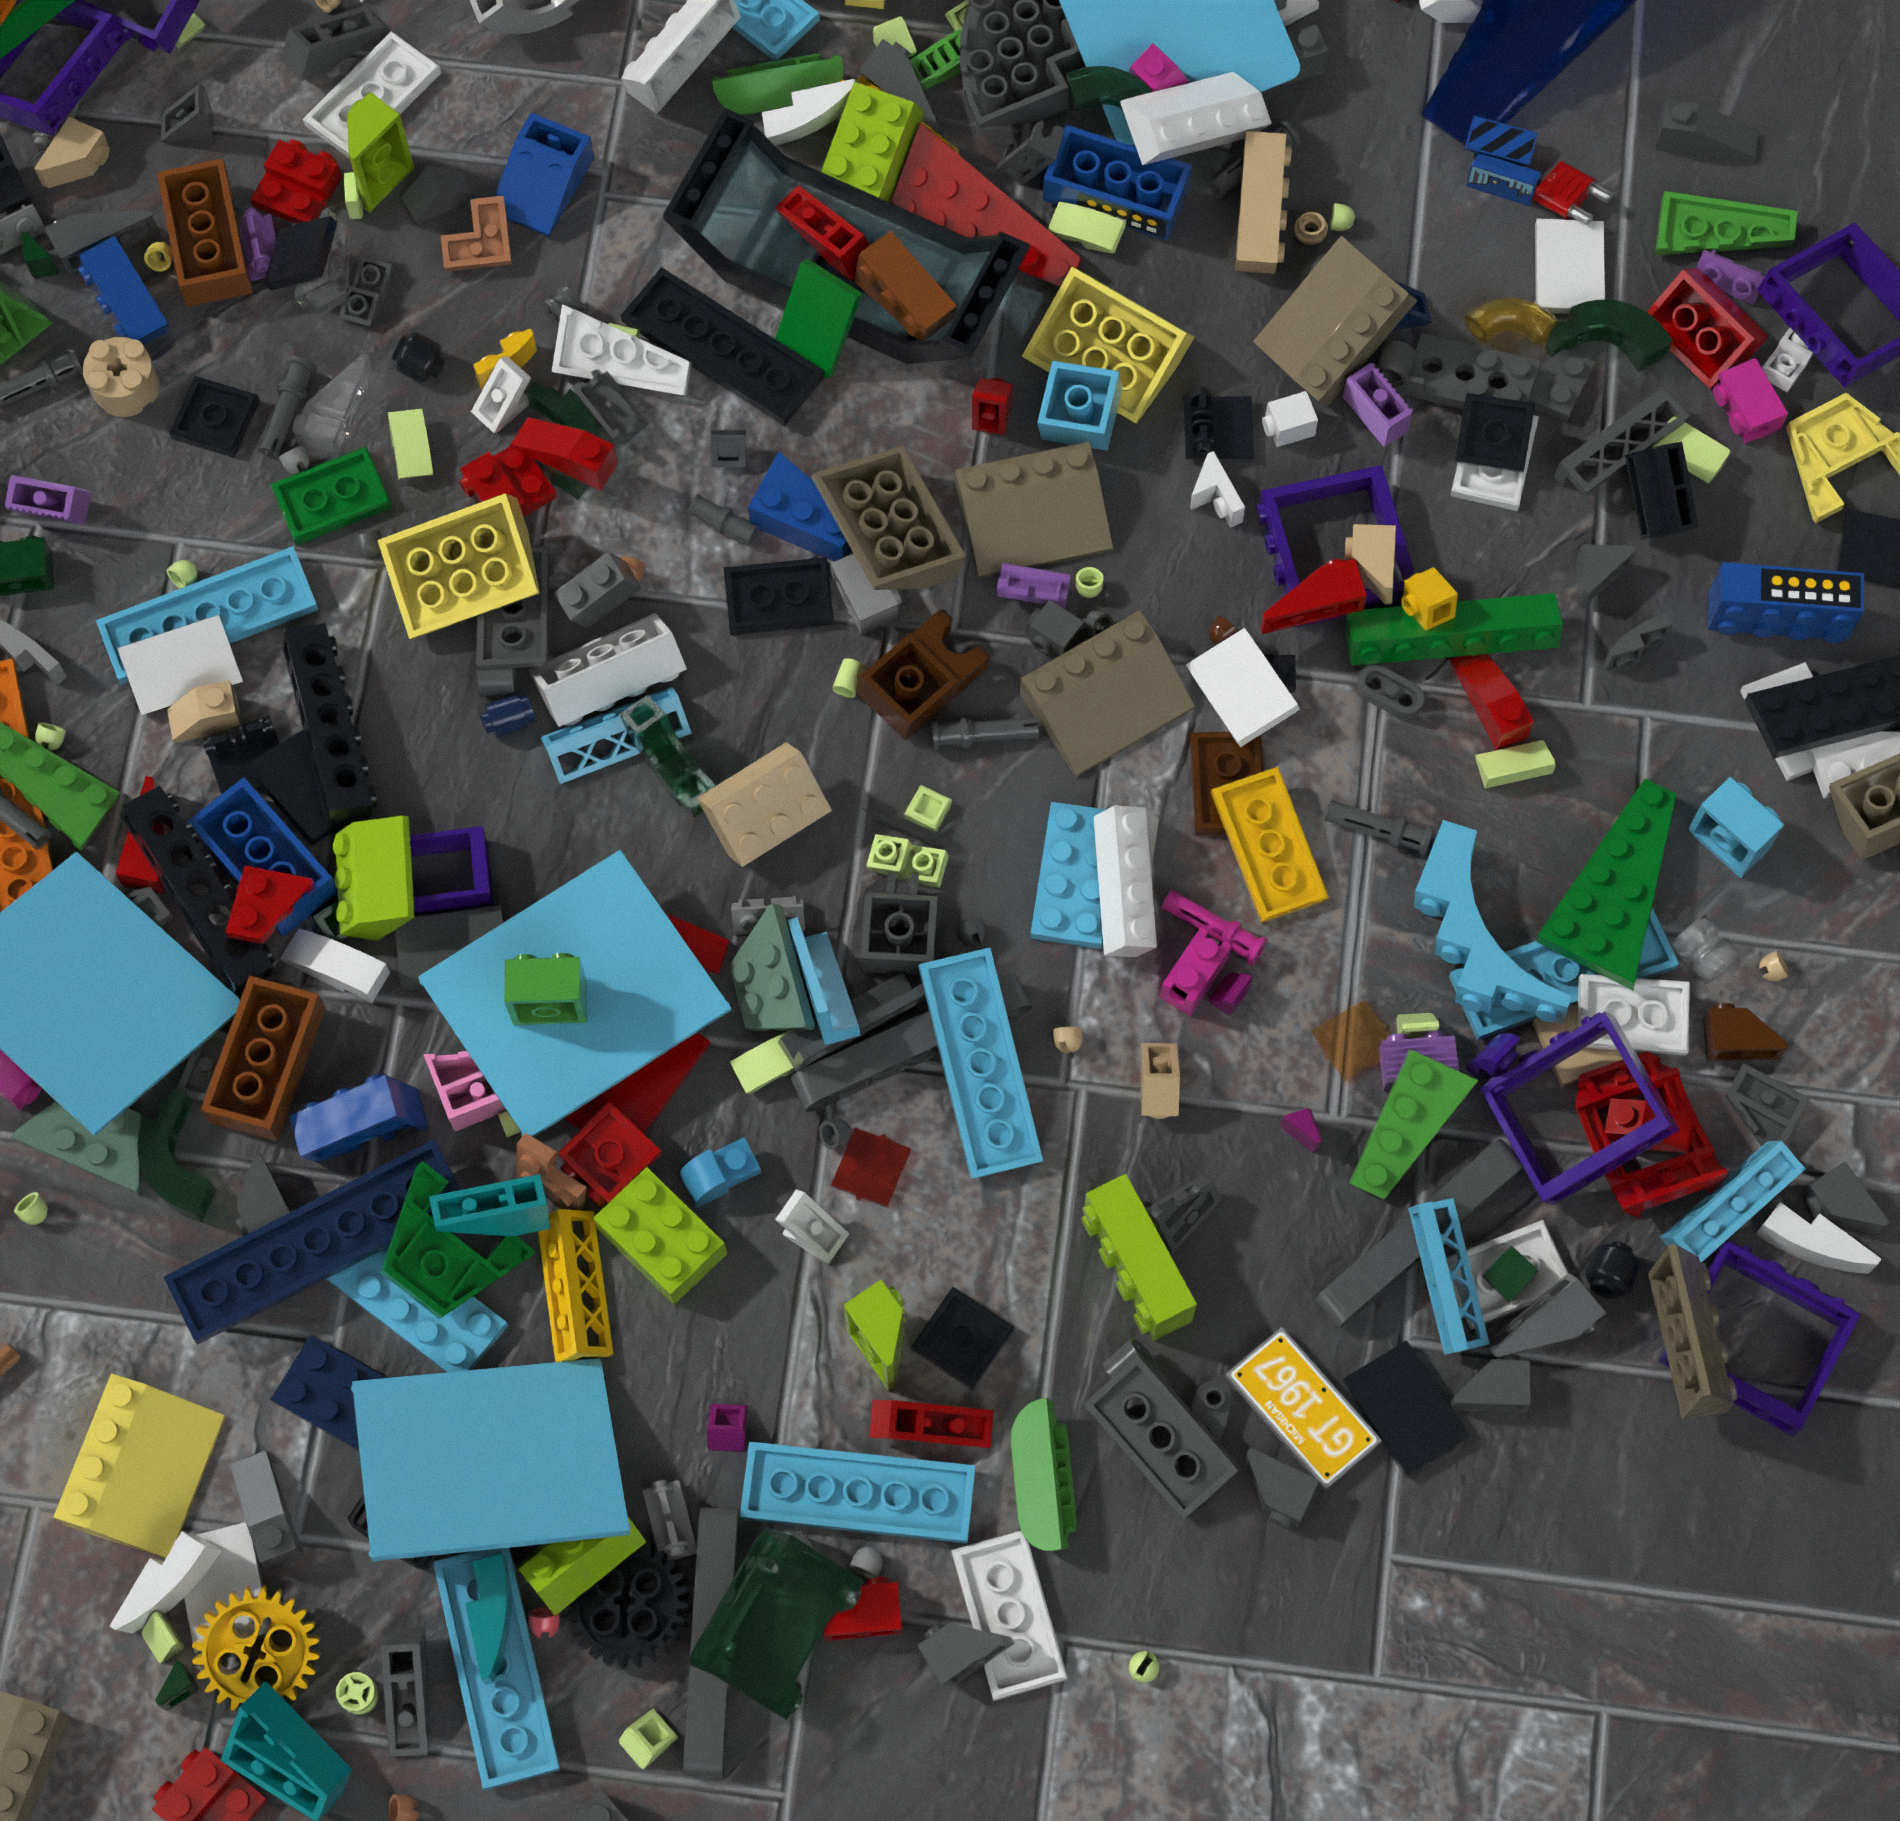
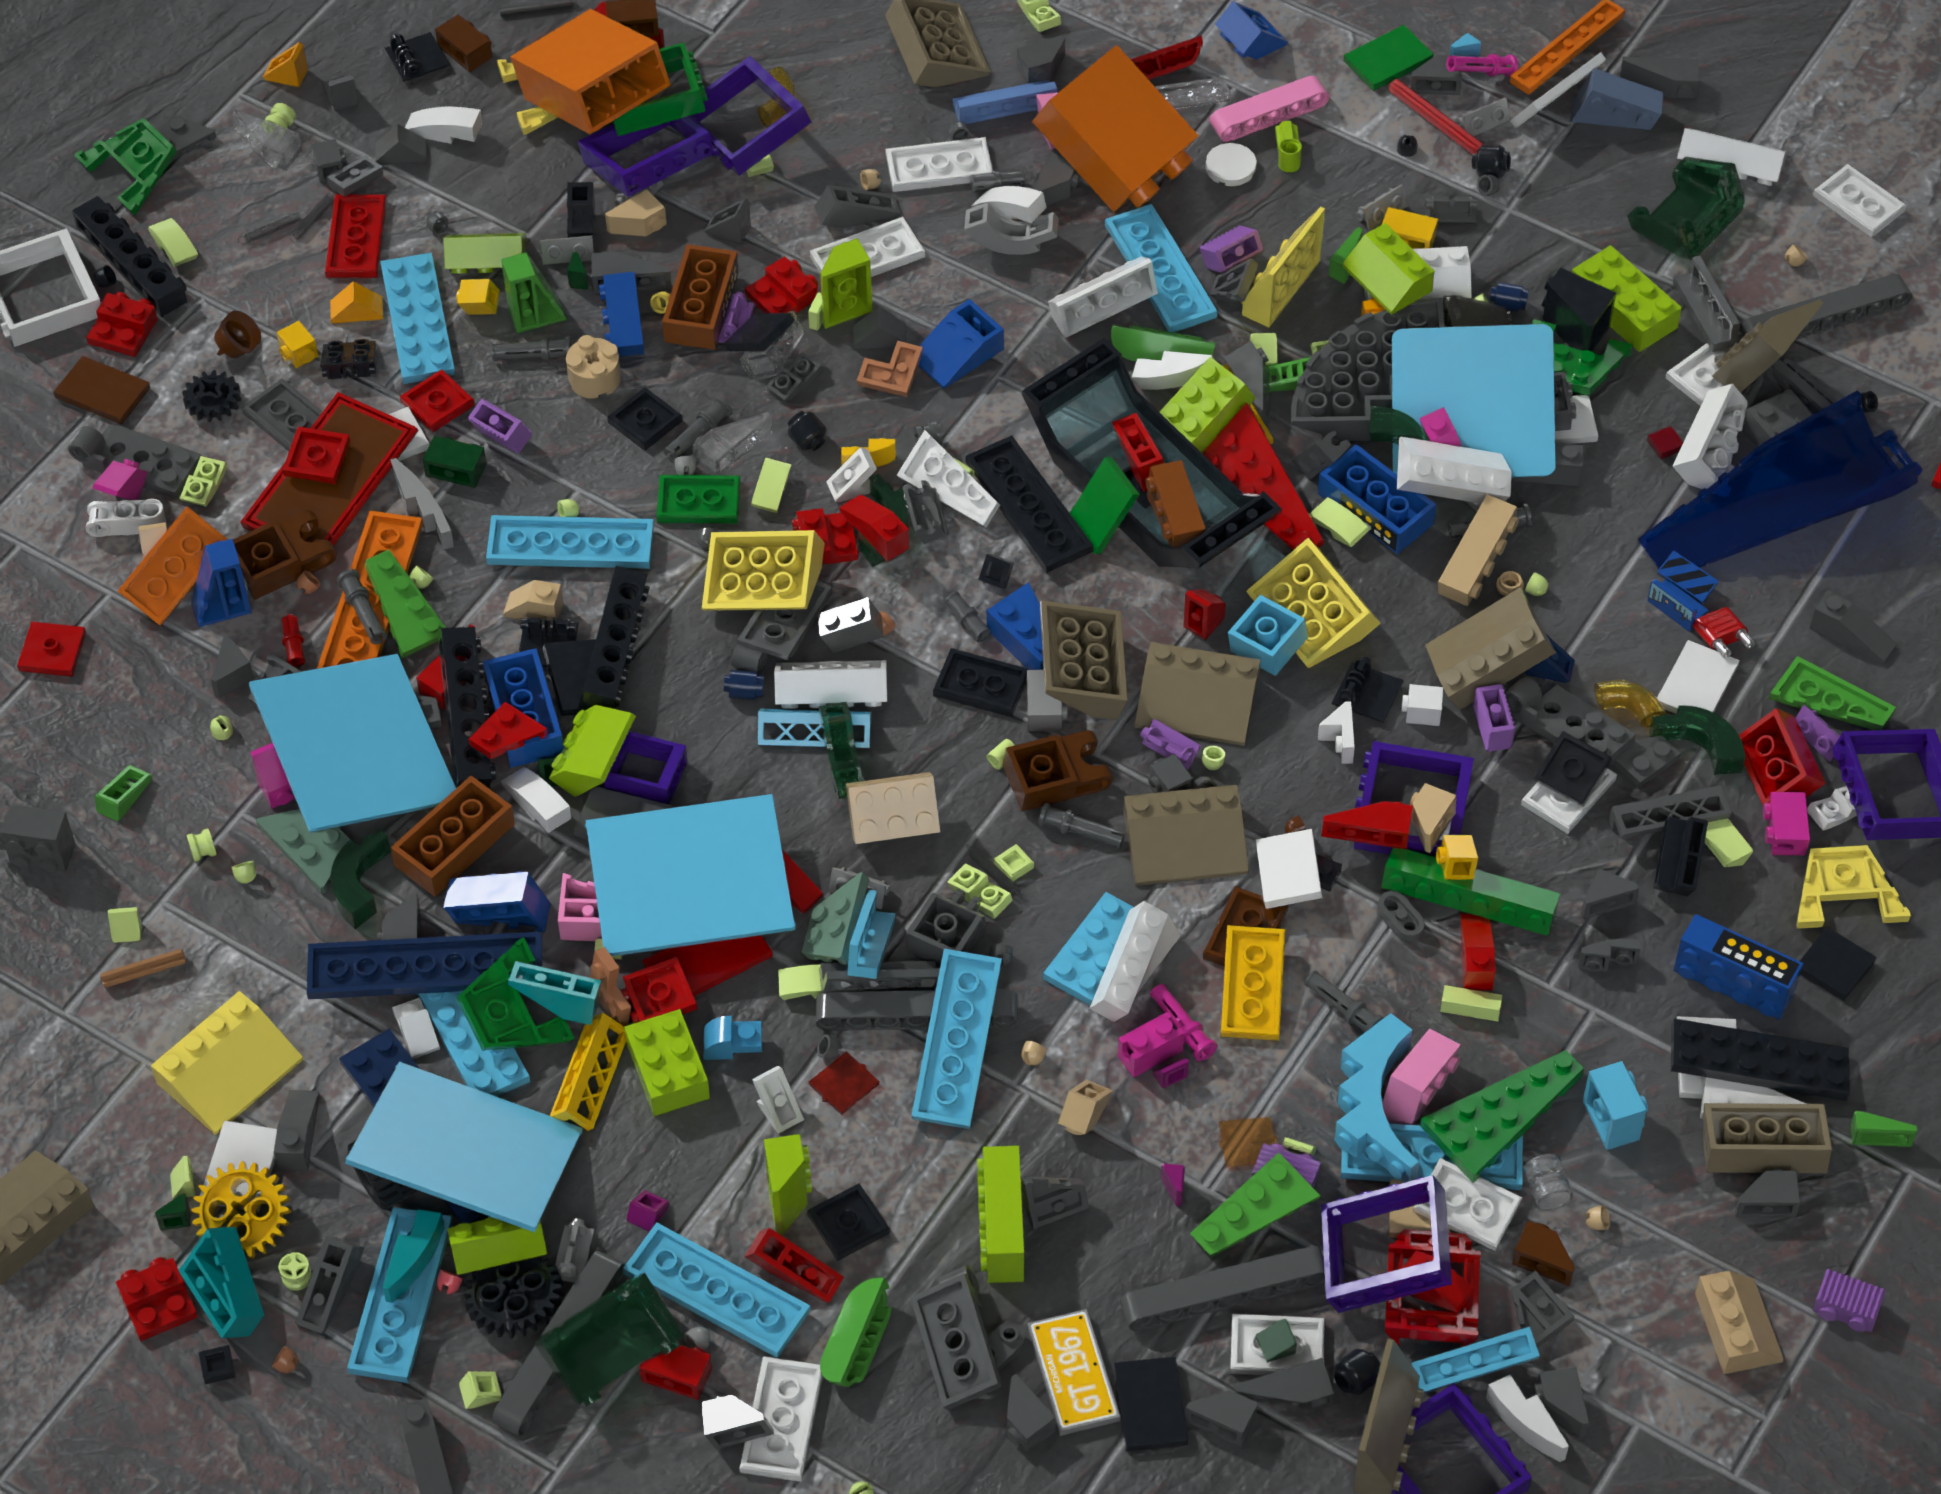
camera: 25 degrees right, 15 degrees down
(166, 1582) = (203, 1141): white slope -> none
(177, 661) = (526, 559): white tile -> none
(341, 1319) = (416, 1028): none -> white slope
(545, 989) = (666, 856): bright green brick -> none
(1440, 1278) = (1217, 1316): medium azure fence -> none
(1496, 1054) = (1342, 1186): dark purple slope -> none
(1511, 882) = (1419, 1078): none -> bright pink wedge

